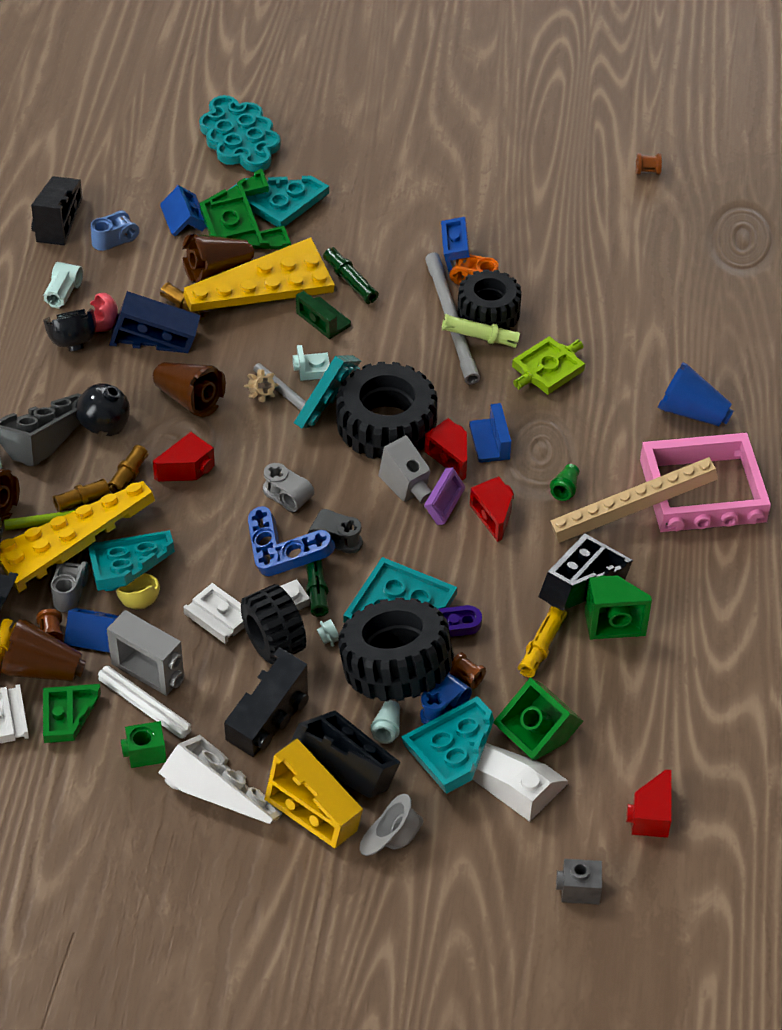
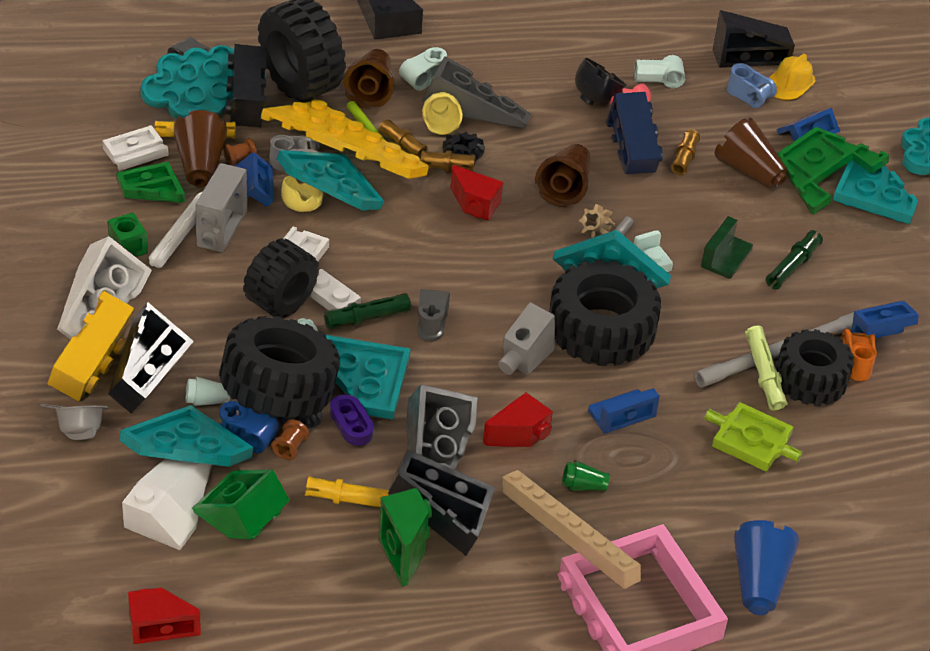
camera: 70 degrees right, 5 degrees down
(62, 453) = (442, 113): none -> light yellow hair
(96, 454) = (454, 144): none -> black gear
(103, 409) = (506, 125): black cylinder -> none
(107, 198) = (793, 77): none -> yellow piece
(264, 279) = (761, 210): yellow wing -> none
(270, 705) = (196, 302): black wedge -> none
(280, 551) = (387, 275): blue beam -> none
(288, 488) = (472, 265): light grey piece -> none
(444, 496) = (515, 381): medium lavender tile -> none
(448, 446) = (586, 376): red slope -> none
(489, 565) = (440, 424): none -> dark grey wedge
(580, 881) = (48, 570): flat silver brick -> none

